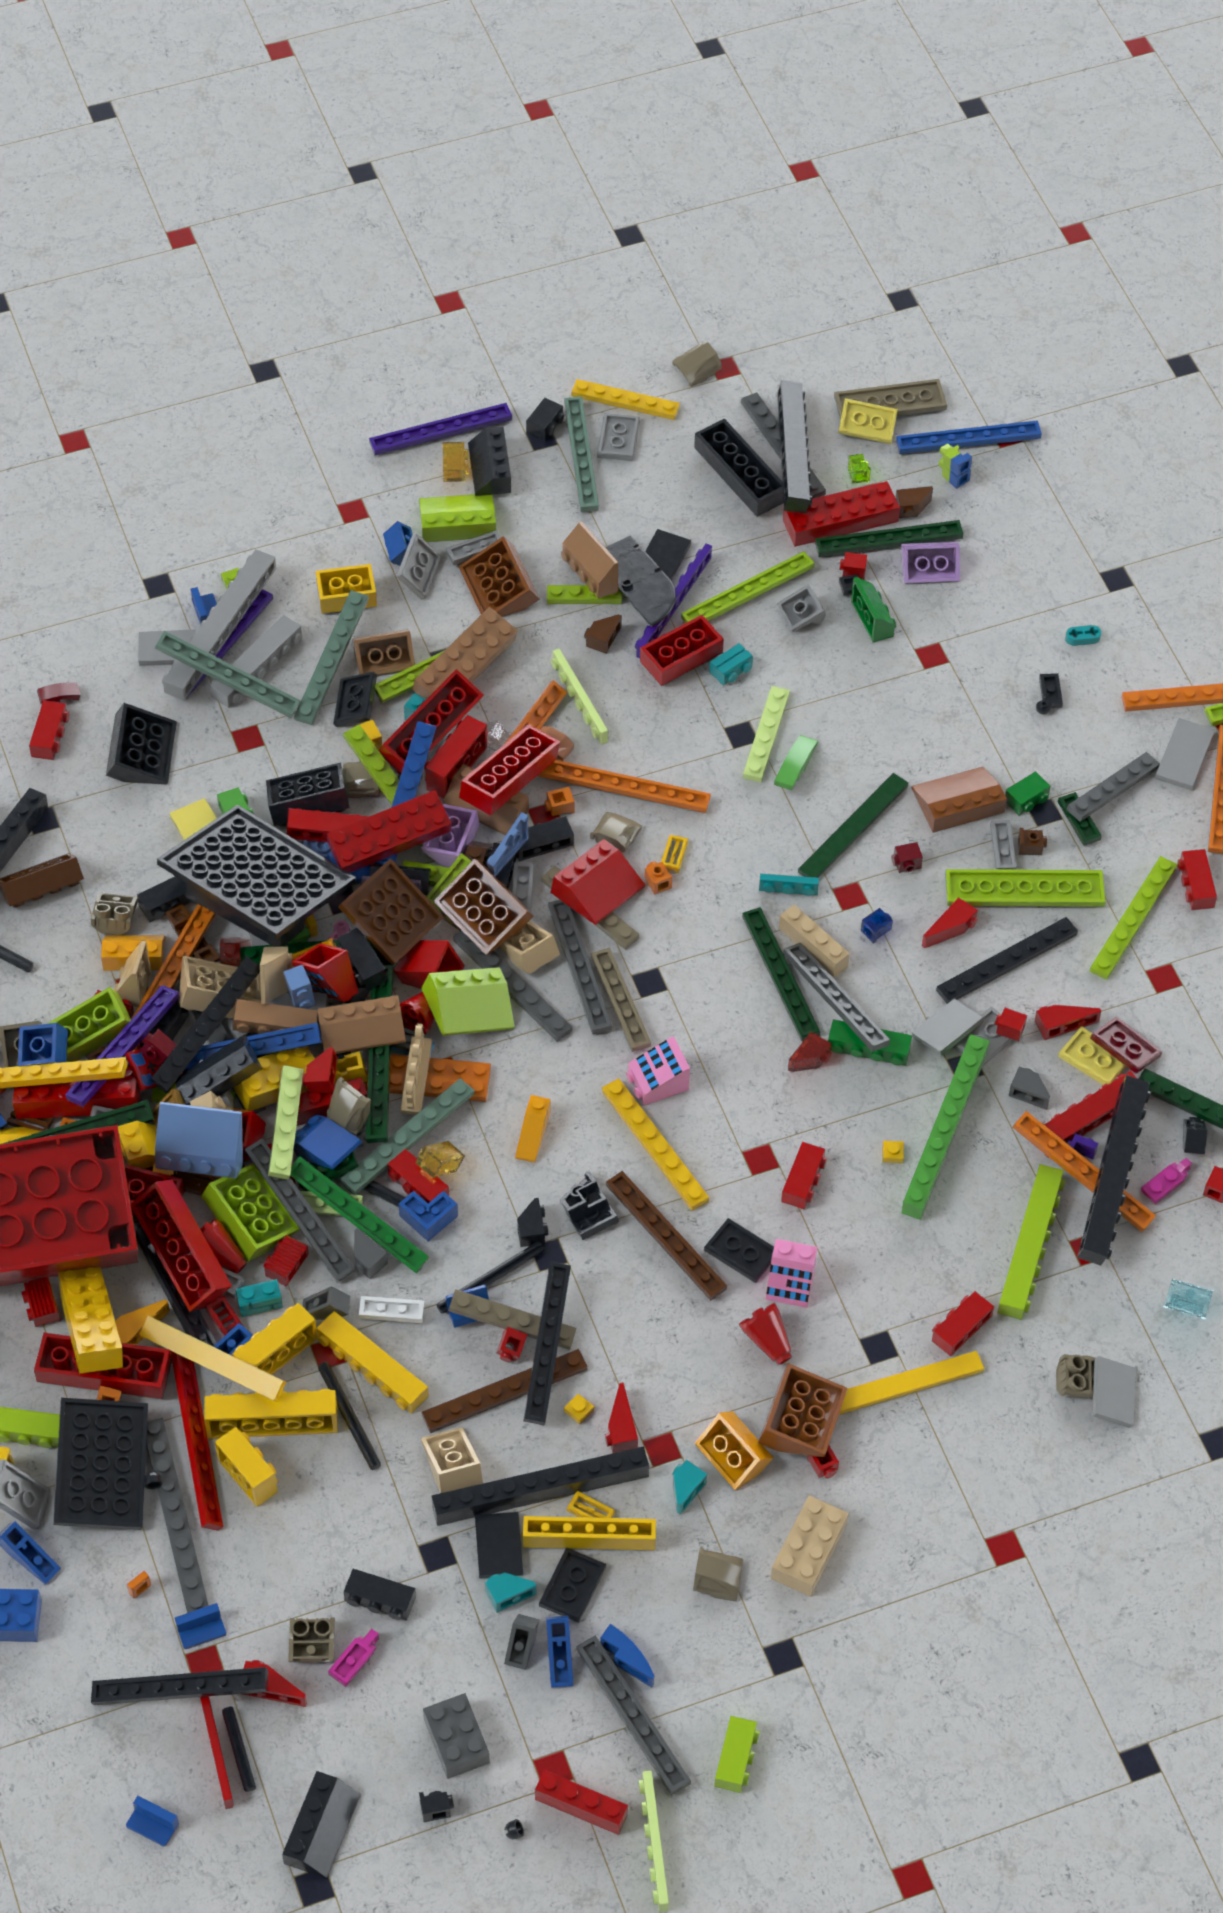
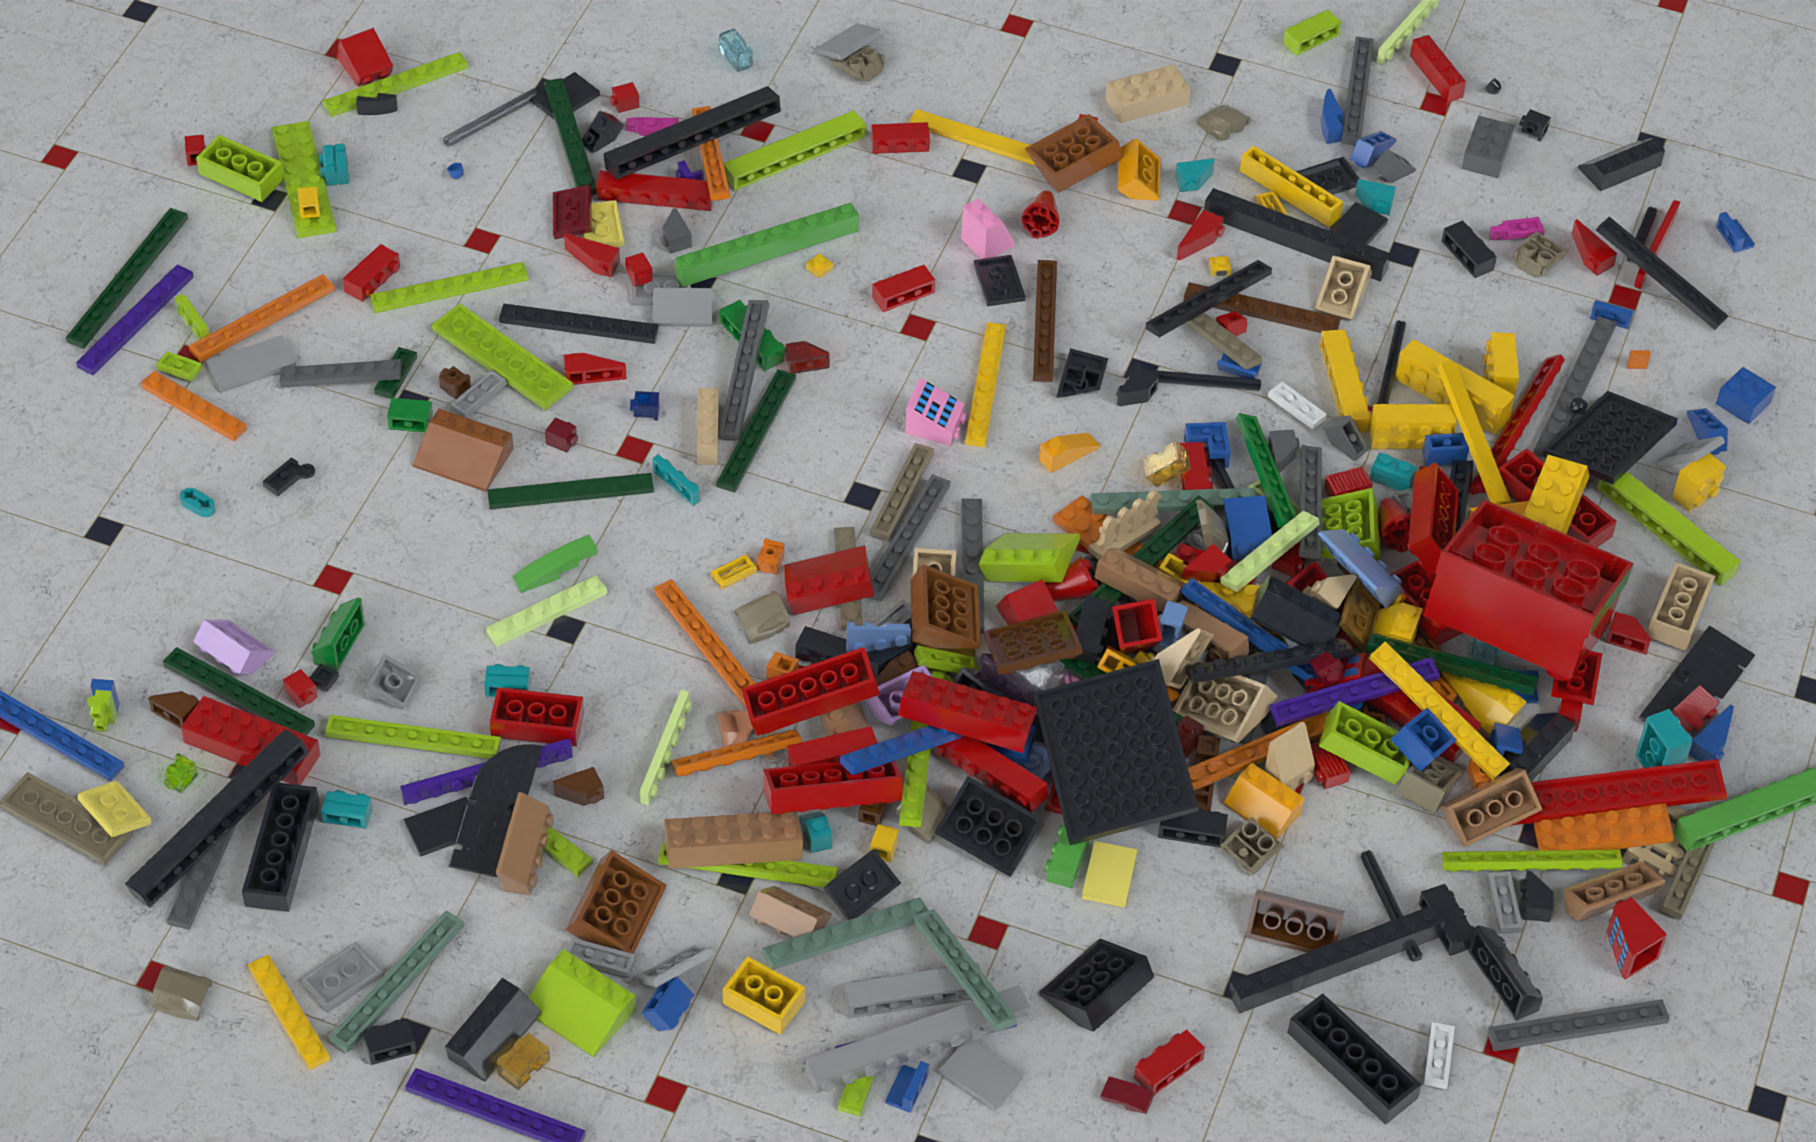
camera: 140 degrees left, 5 degrees down
(731, 519) = (346, 809): none -> teal brick

